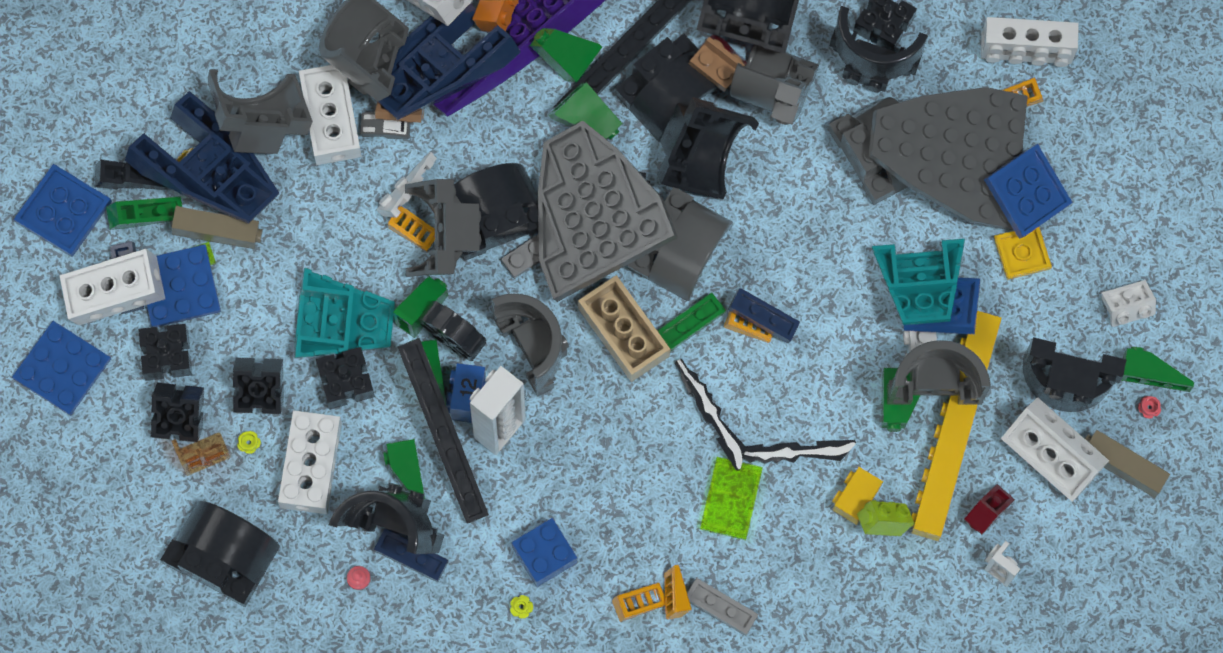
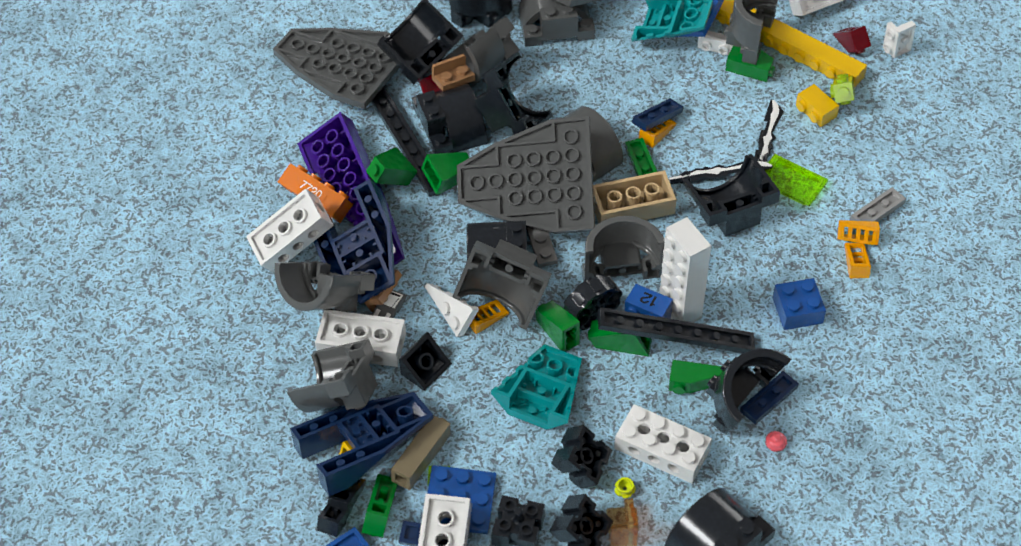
camera: 65 degrees left, 20 degrees down
(325, 189) = (423, 362): none -> black slope
(345, 378) = (597, 396): black brick -> none
(522, 600) = (837, 340): neon yellow plate -> none
(658, 433) = (738, 201): none -> black piece

